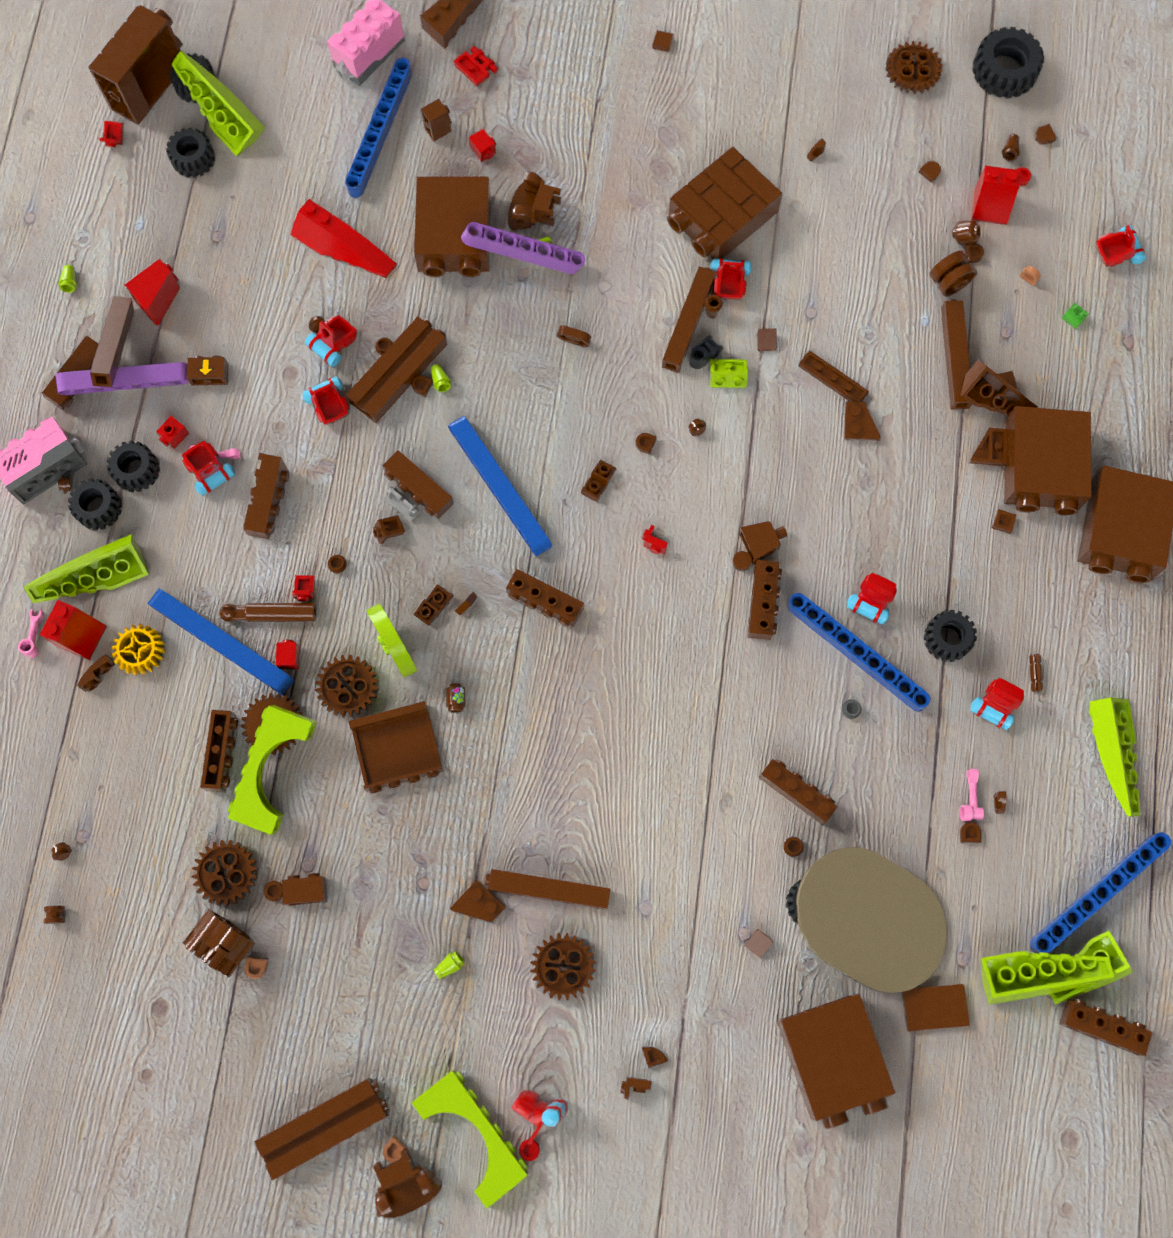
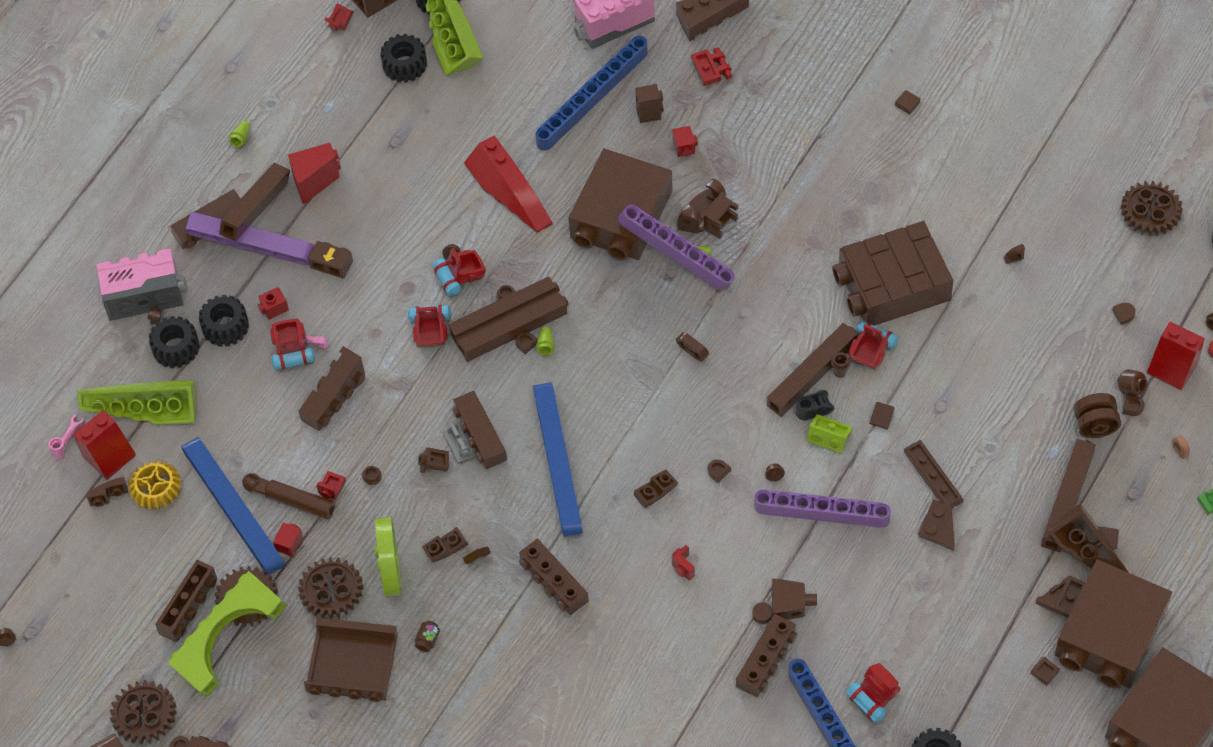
camera: 25 degrees right, 15 degrees down
(759, 439) = (831, 504): none -> medium lavender beam

